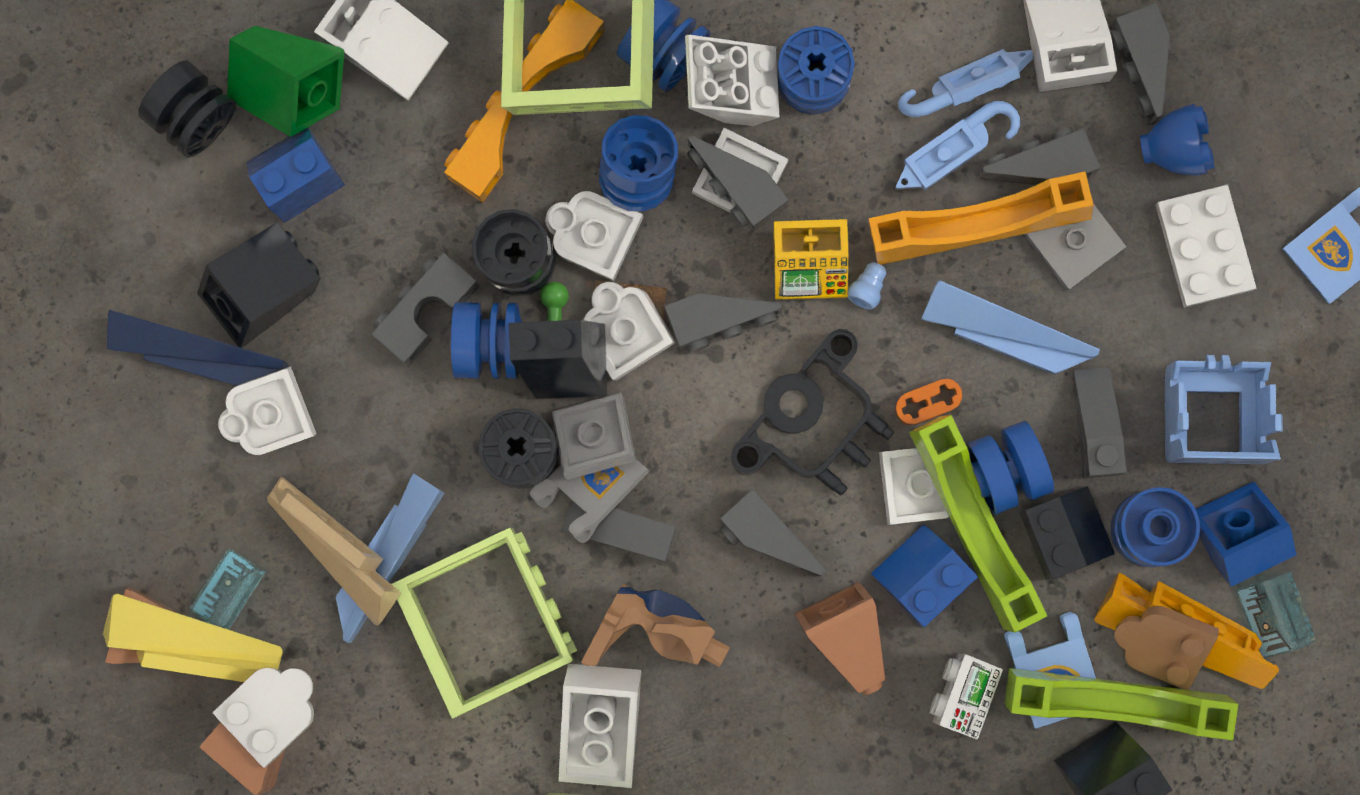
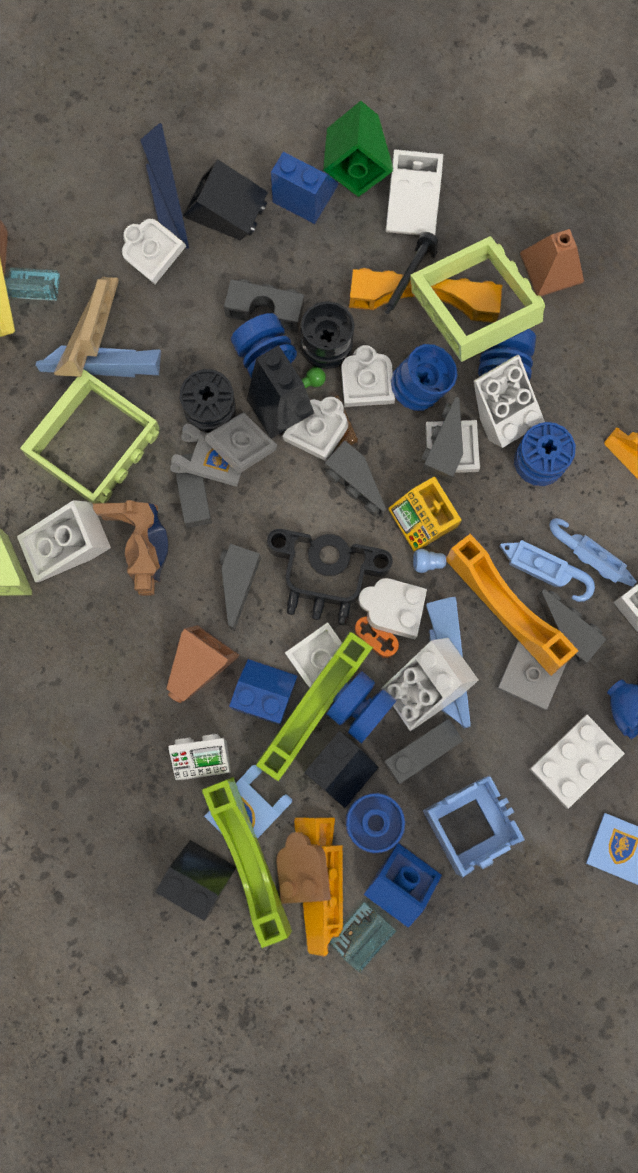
camera: 50 degrees right, 5 degrees down
(187, 108) = (307, 106): black wheel -> none
(455, 59) = (426, 243): none -> black piece
(904, 360) = (394, 607): none -> white plate
(1023, 369) = (430, 682): none -> white slope

